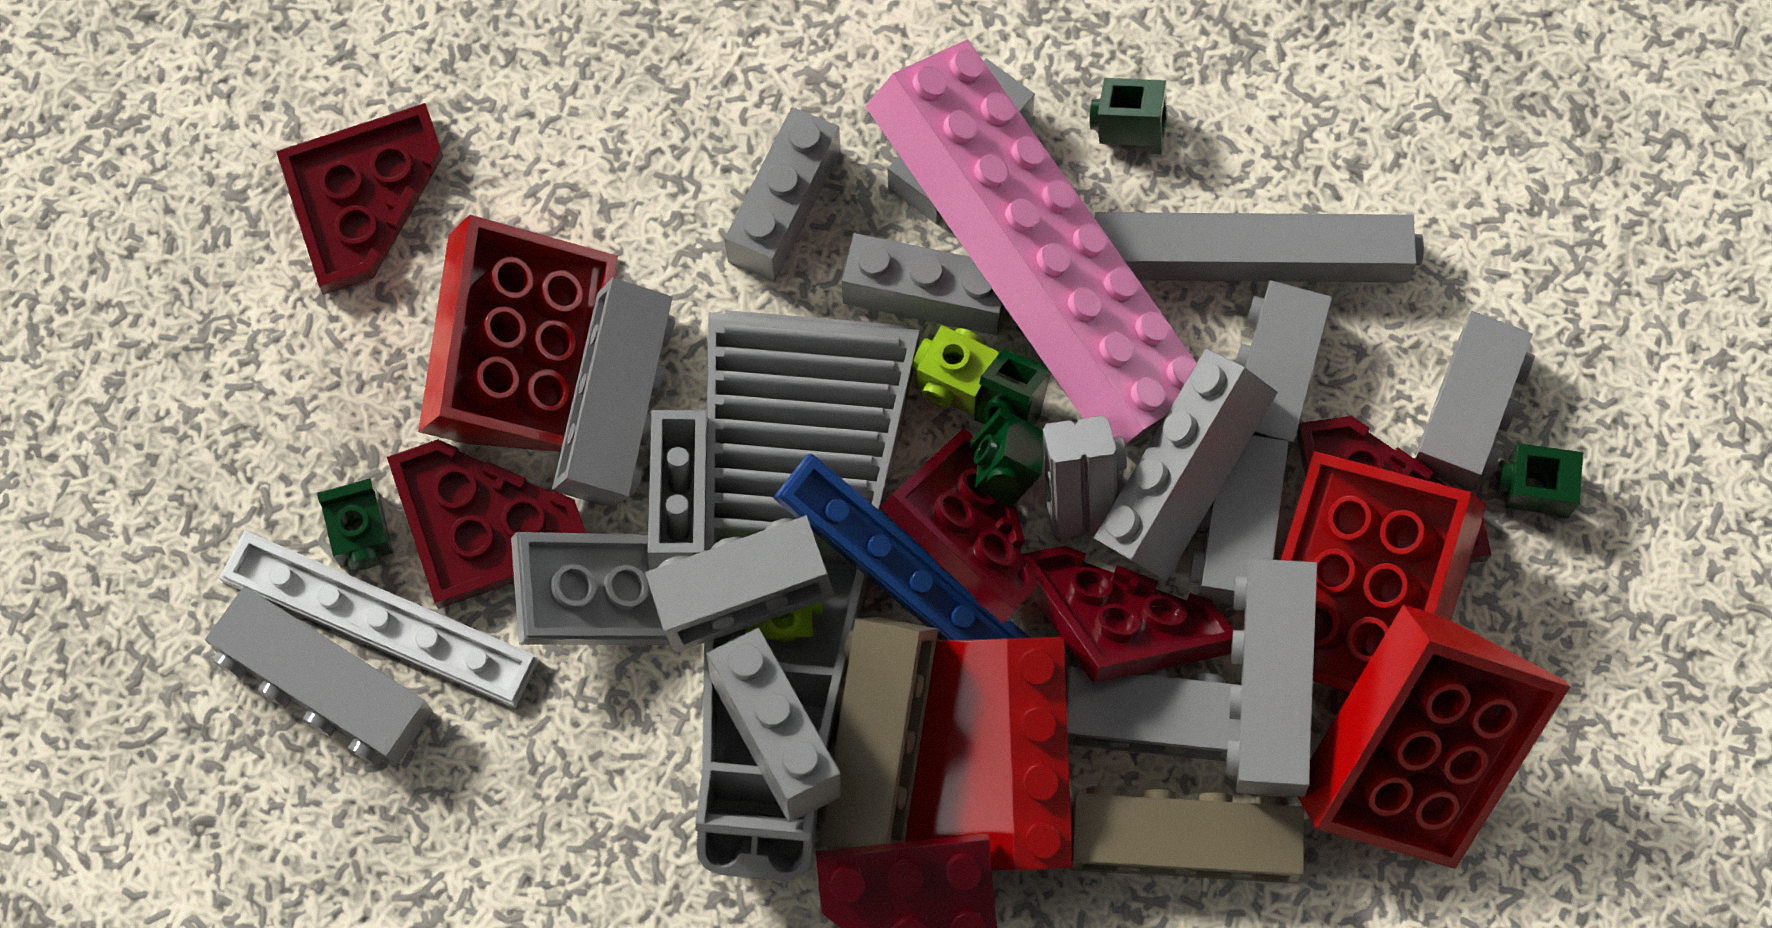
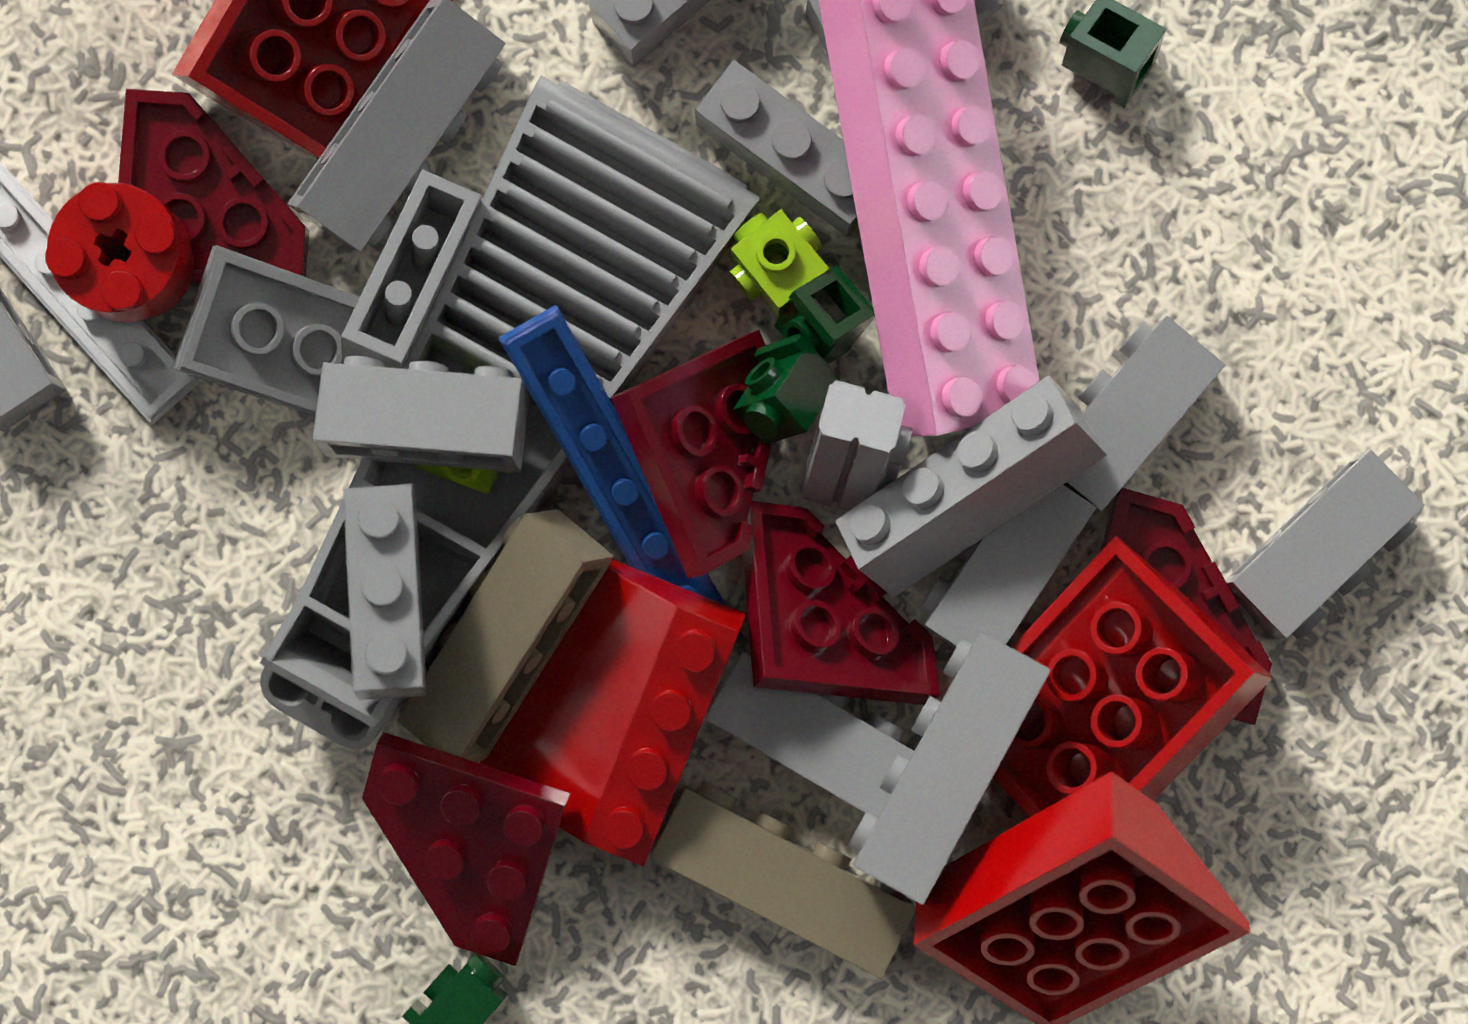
camera: 20 degrees right, 15 degrees up
(352, 503) = (85, 137): dark green brick -> none
(423, 548) = (92, 229): none -> red brick
(1265, 246) = (1180, 267): light grey brick -> none
(1556, 470) = (1373, 673): dark green brick -> none

